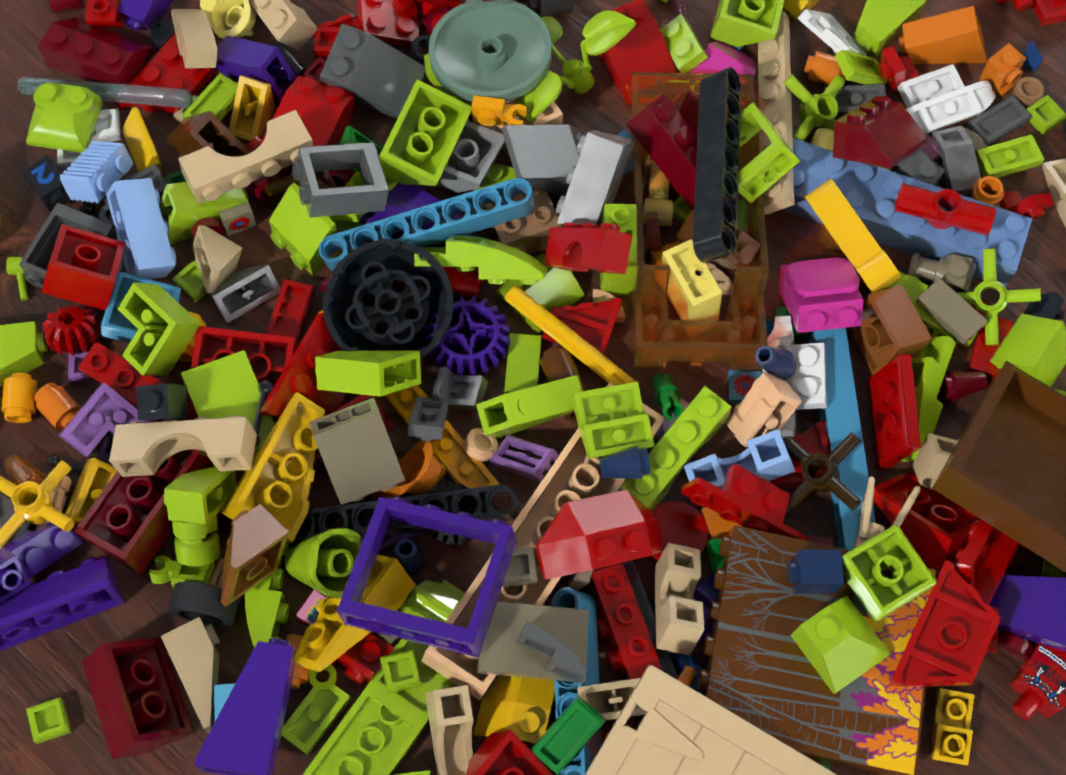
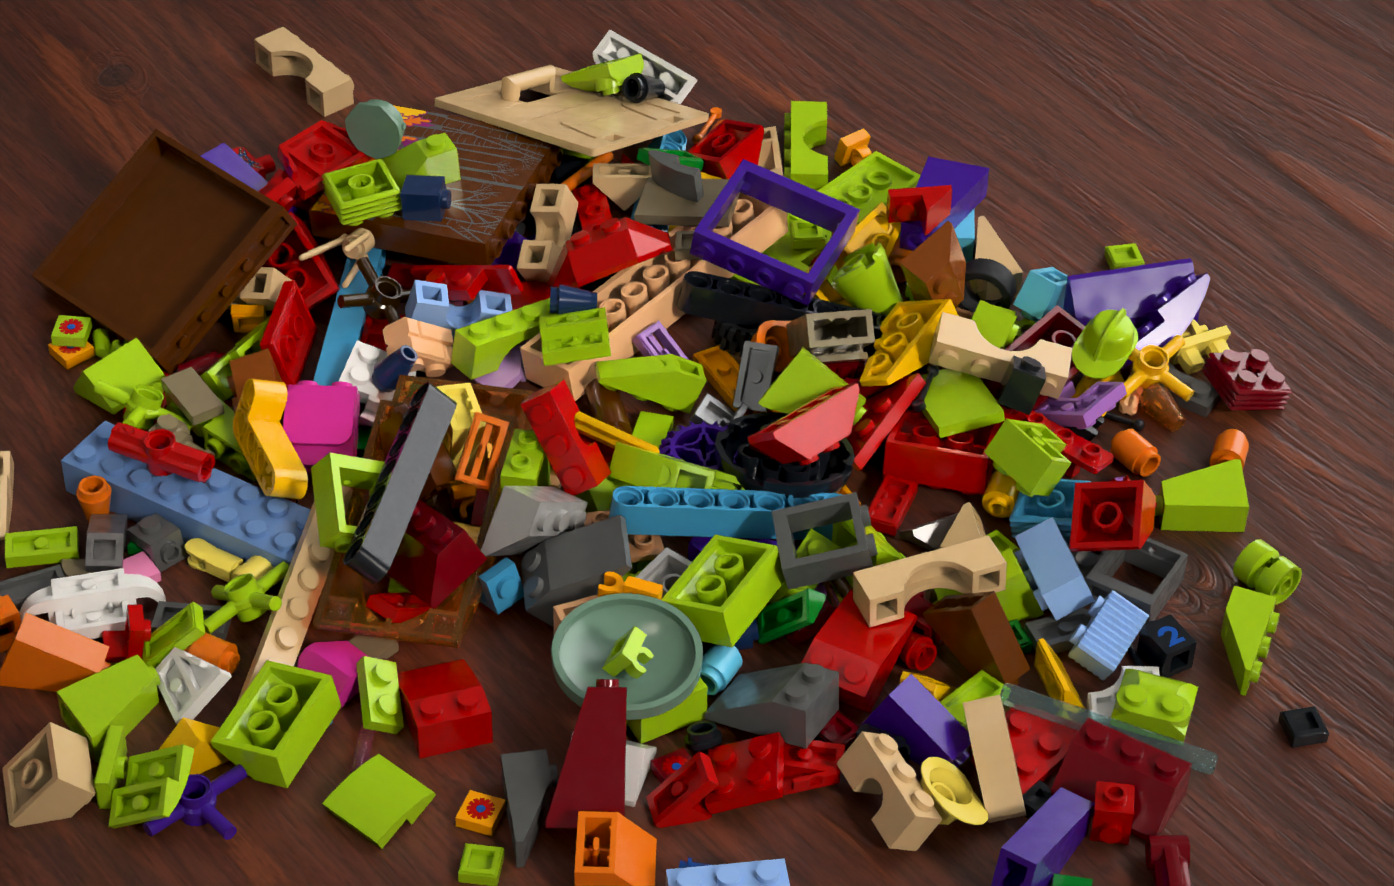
camera: 170 degrees left, 25 degrees down
(14, 268) = (1193, 580): lime hand -> none
(18, 398) = (1176, 460): light orange brick -> none
(74, 510) = (1105, 344): none -> lime piece
(135, 599) = (1041, 293): none -> medium azure brick
(136, 696) = (1045, 240): dark red slope -> none
(260, 655) = (922, 204): none -> red slope
(373, 296) = (809, 429): none -> wedge
(480, 446) = (714, 380): light nougat tile -> none
(487, 24) = (626, 653): none -> lime tile
(600, 35) = (487, 639): lime plant -> none
(665, 237) = (472, 479): none -> orange tile
(667, 396) = (510, 367): green pin -> none
(877, 133) = (194, 541): dark red slope -> none
(900, 655) = (375, 128): none -> sand green hat
(1031, 206) = (55, 489): red bracket -> none
(1048, 307) = (87, 411): black tile -> none

